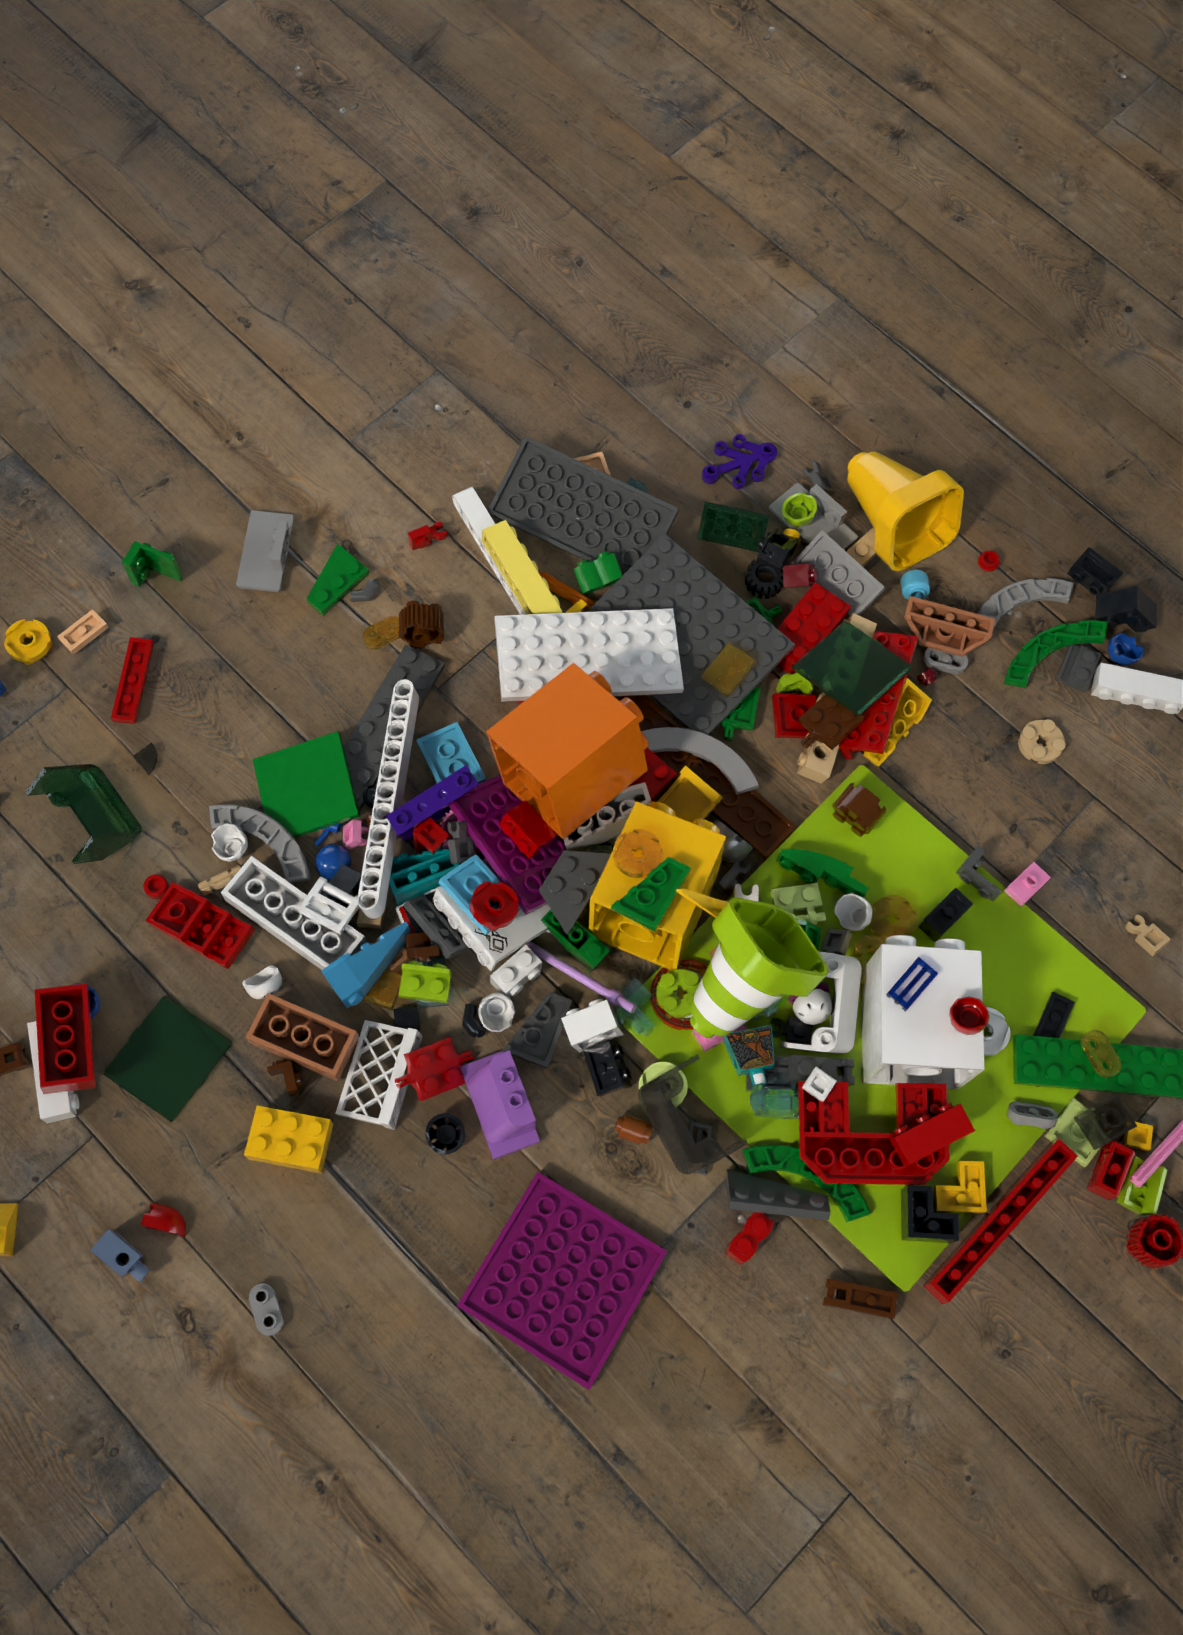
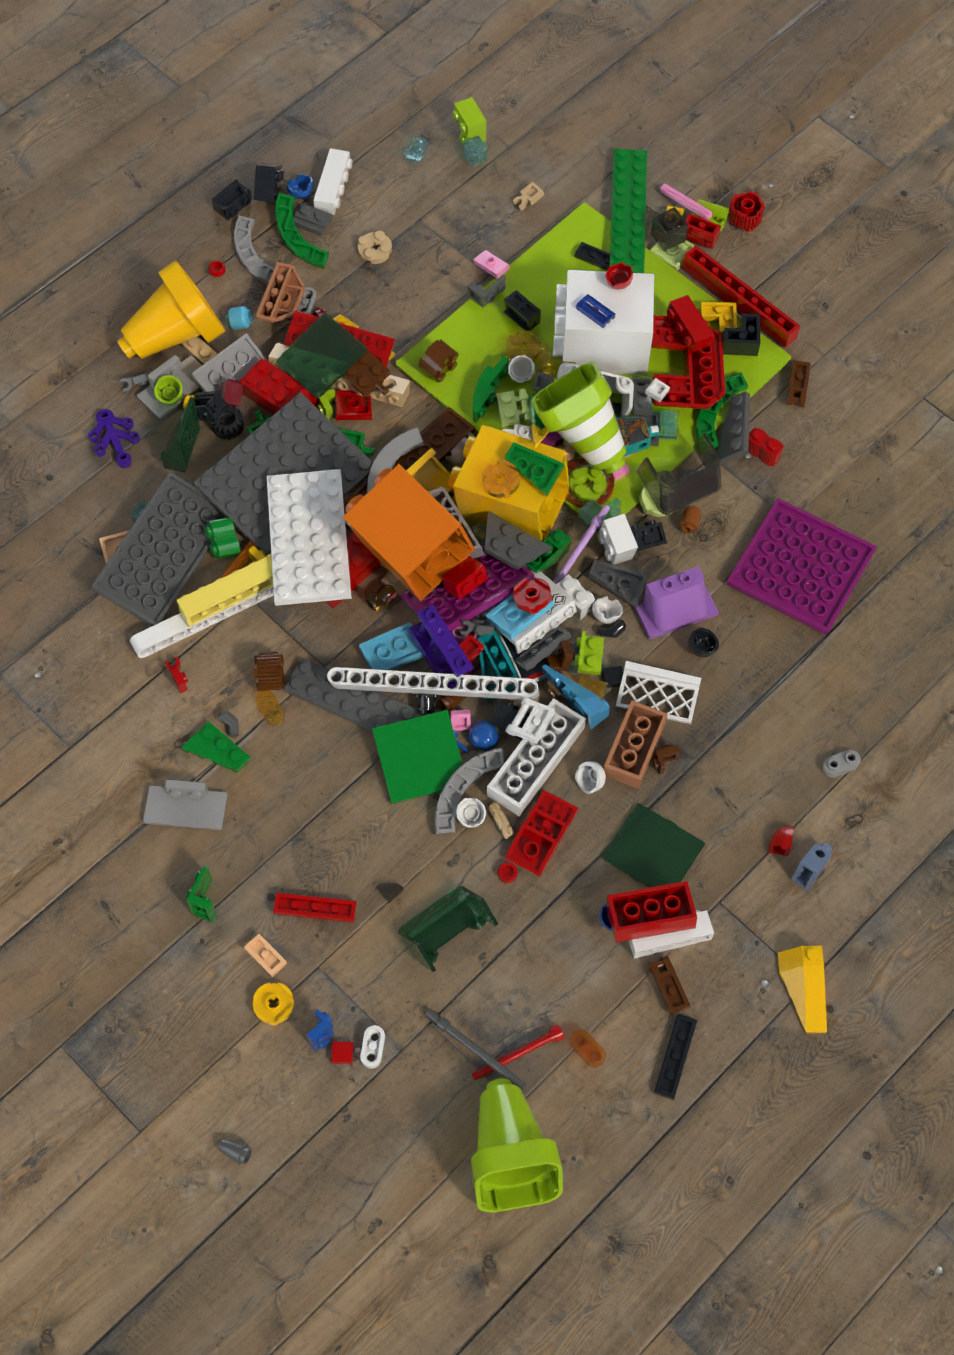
camera: 85 degrees left, 5 degrees down
(289, 1139) = (715, 751): yellow brick -> none
(434, 1069) = (655, 650): red plate -> none
(728, 669) = (323, 438): clear yellow plate -> none
(1032, 1114) = (665, 272): light grey plate -> none
(1101, 1053) = (622, 225): clear yellow plate -> none

